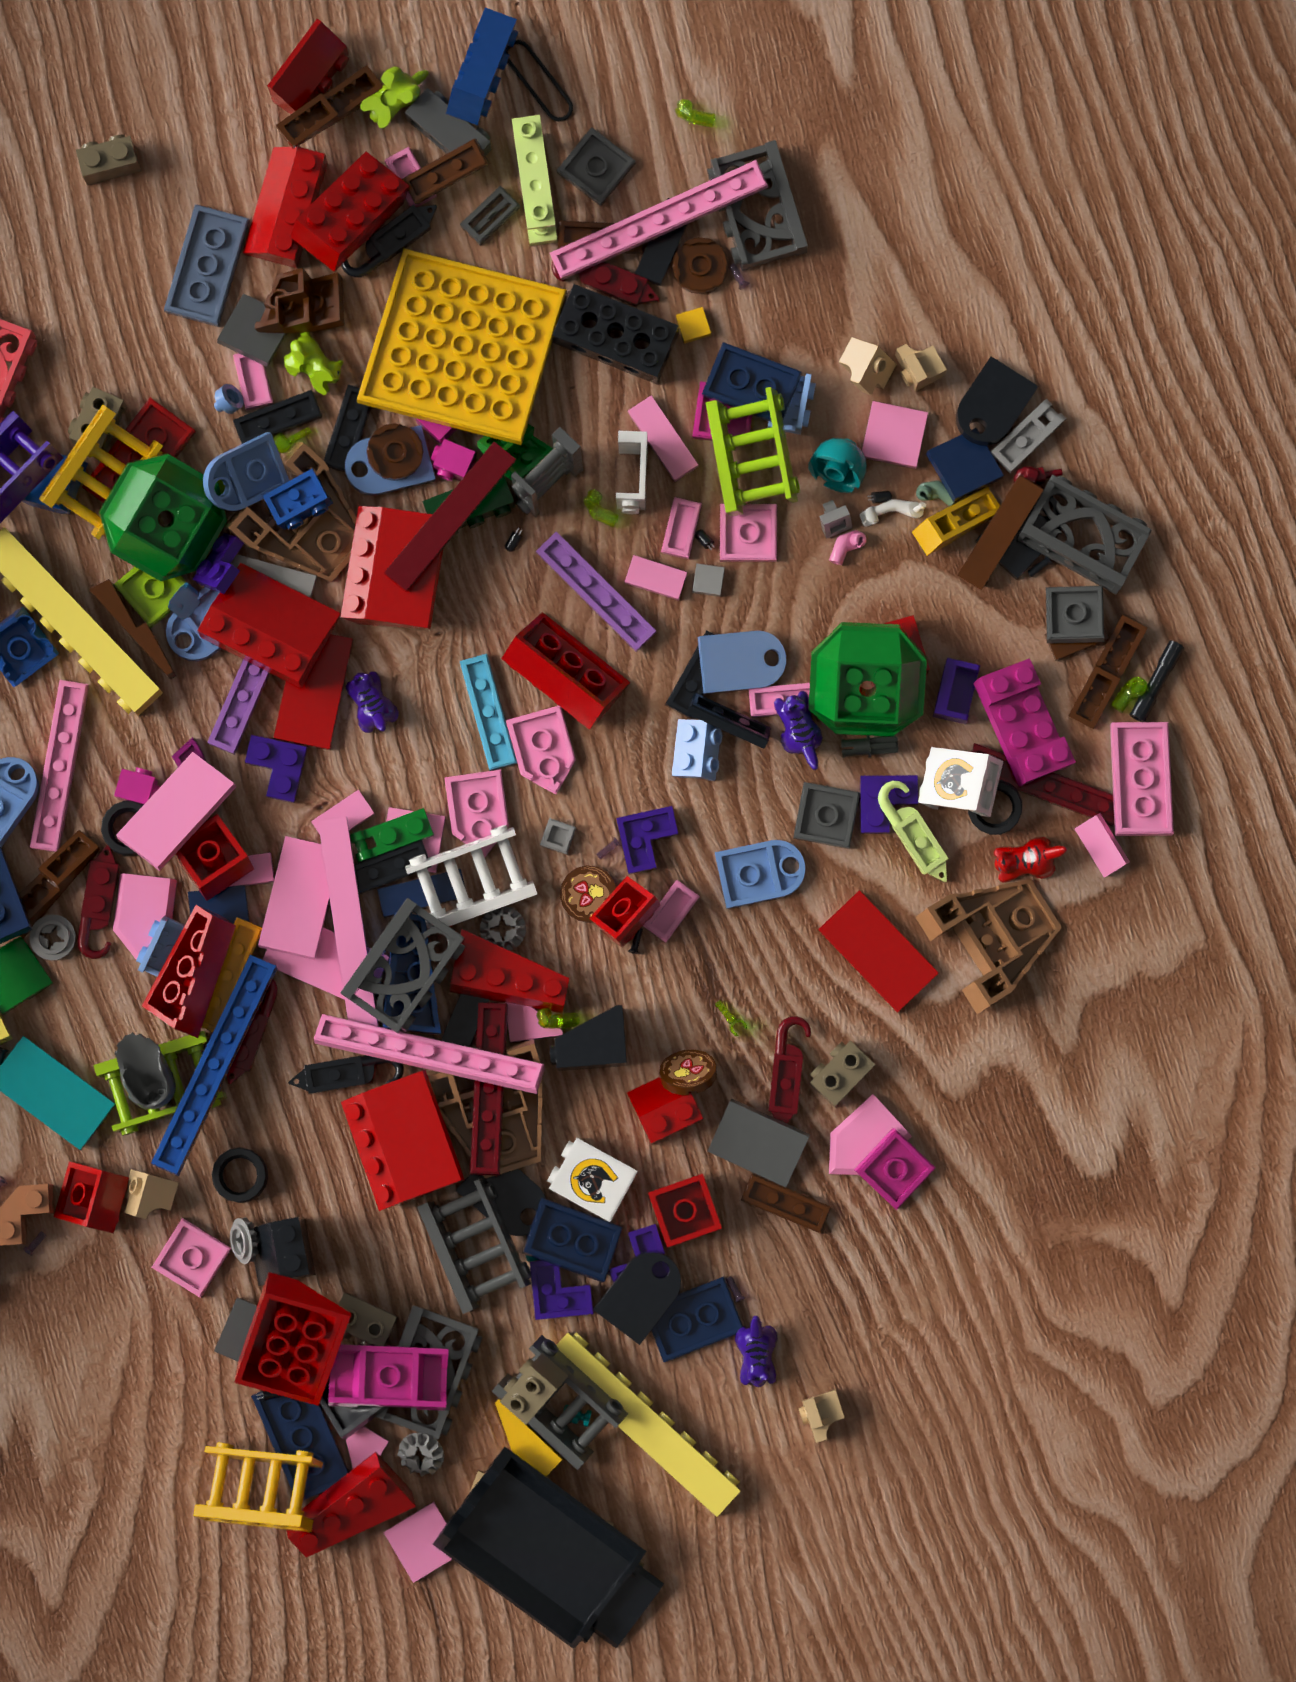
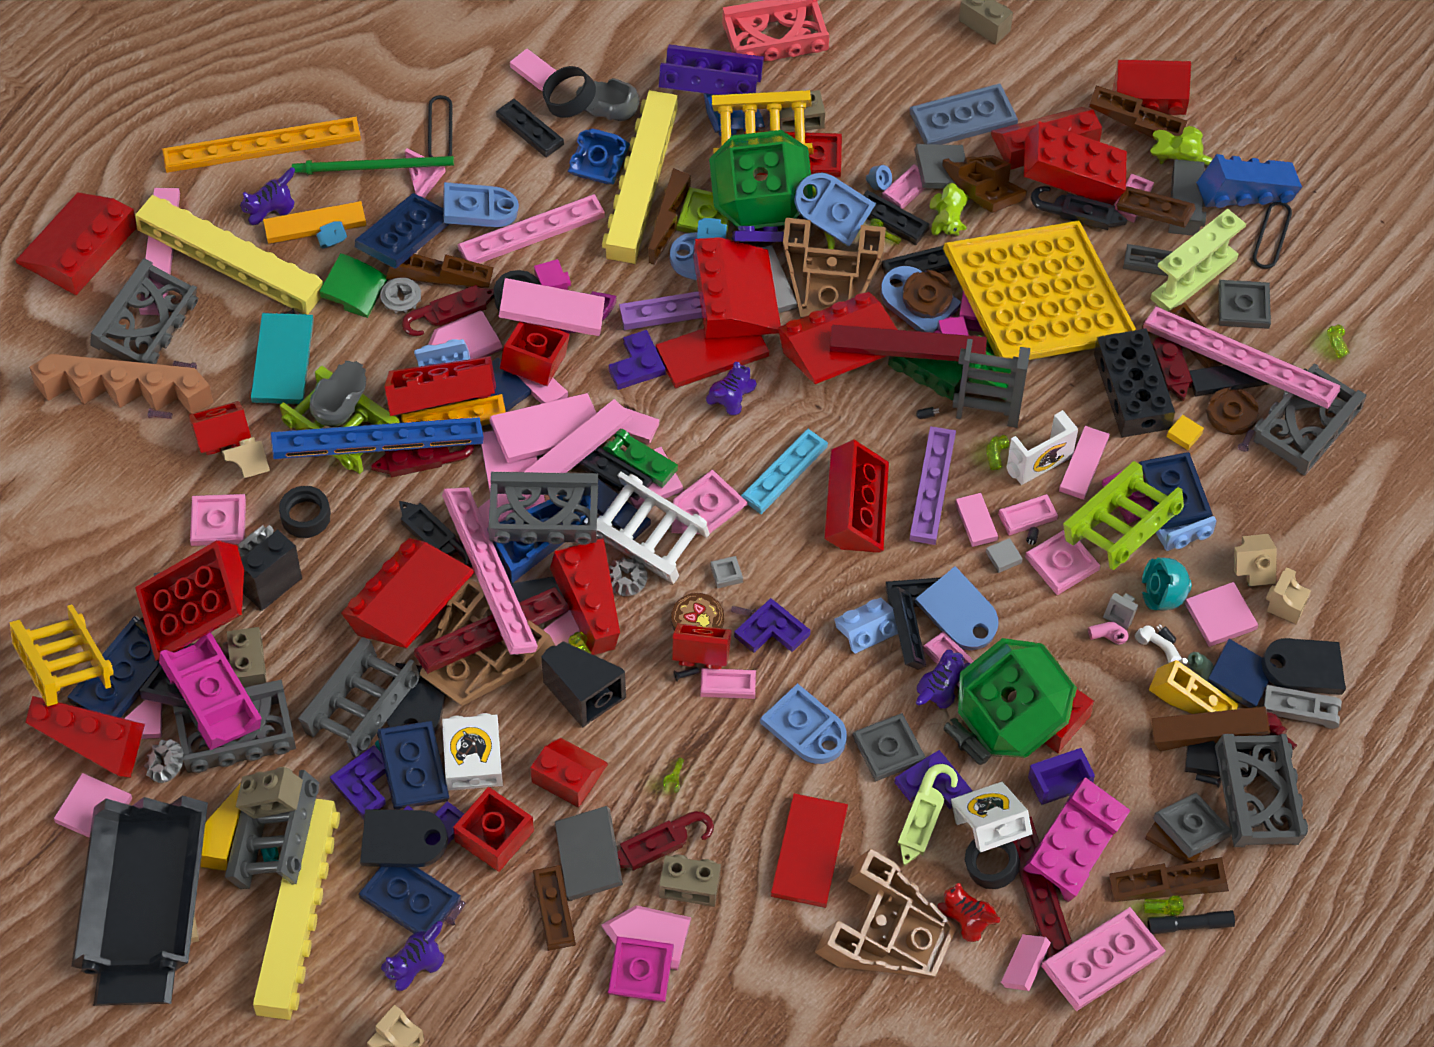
camera: 50 degrees right, 25 degrees down
(298, 500) = (840, 249): blue bracket -> none
(542, 747) = (786, 520): bright pink tile -> none
(688, 1072) = (608, 763): tile -> none

